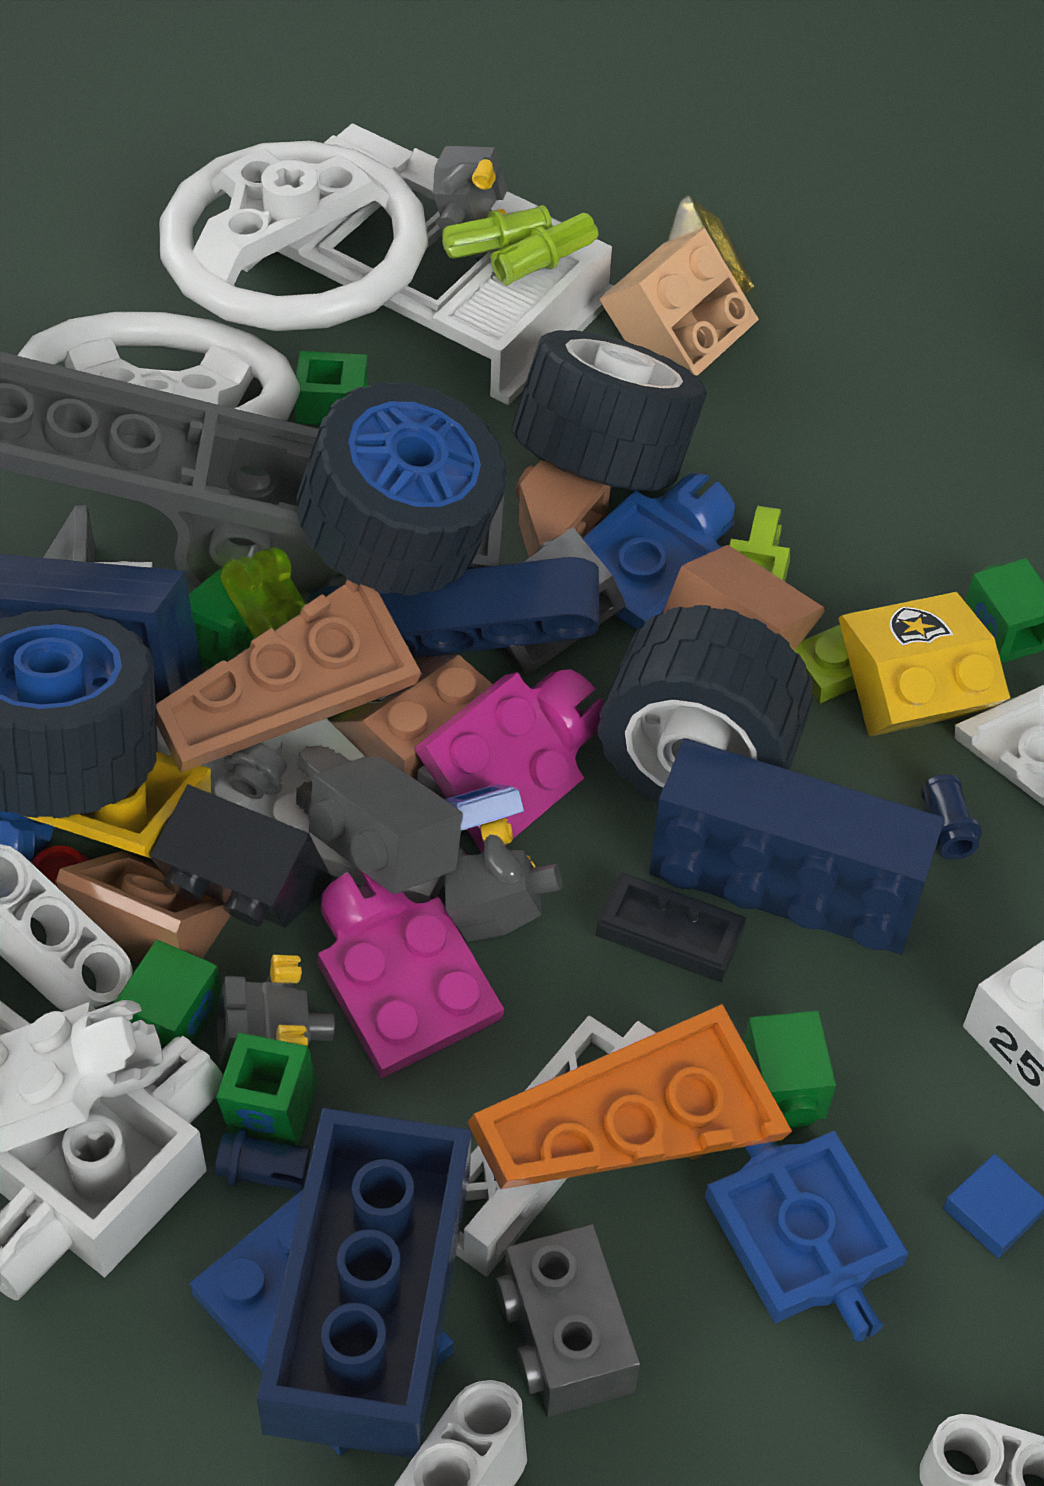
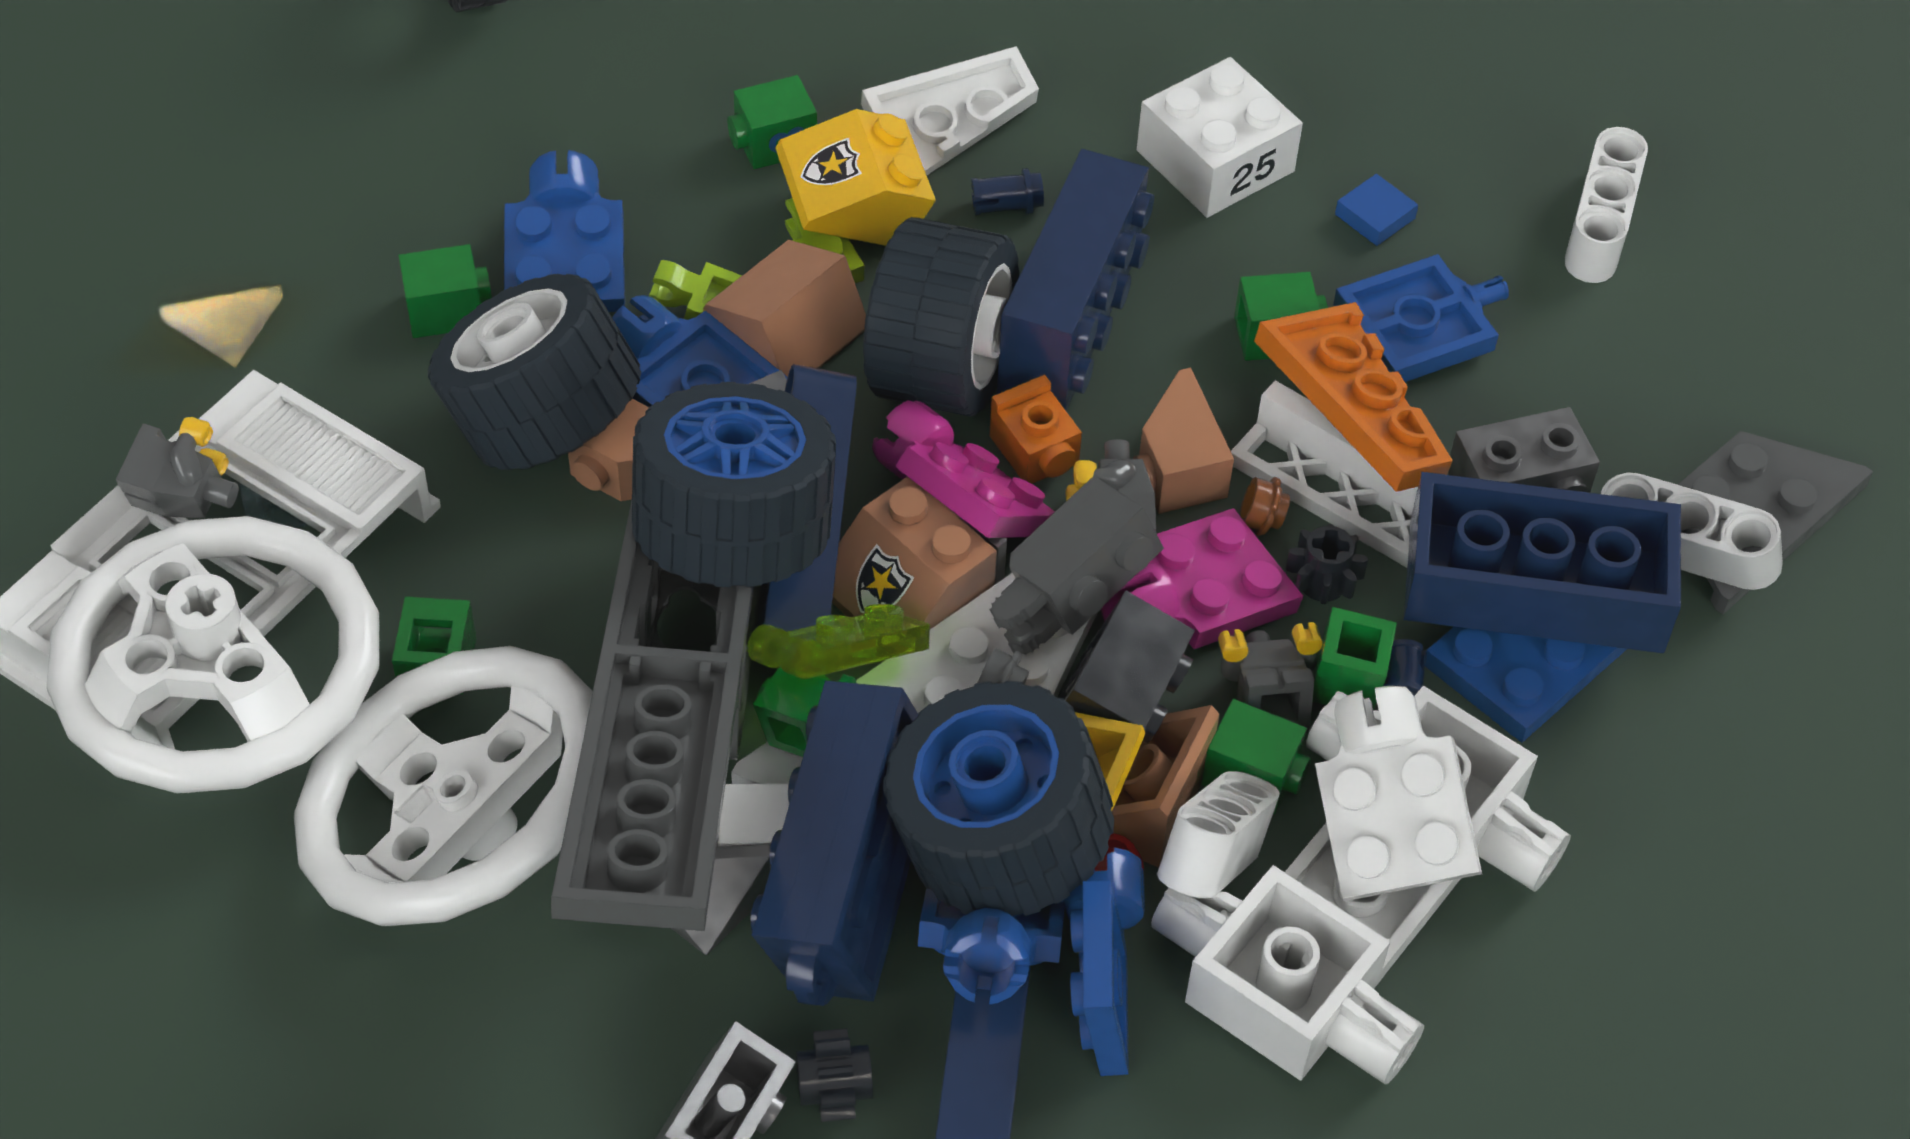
camera: 90 degrees left, 0 degrees up
(311, 668) = (912, 608): nougat wing -> none
(417, 1072) = (1327, 563): none -> black gear
(487, 804) = (1055, 478): tile -> none
(493, 232) = (245, 451): lime axle -> none
(509, 1040) = (1264, 505): none -> dark orange plate
(543, 248) = (280, 411): lime axle -> none
(586, 959) = (1185, 448): none -> nougat slope
(599, 829) = (1034, 431): none -> orange brick
(671, 926) = (1134, 387): black plate -> none
(681, 303) = (322, 334): light nougat slope -> none
(742, 375) = (442, 288): none -> green brick
(822, 458) = (566, 229): none -> blue plate

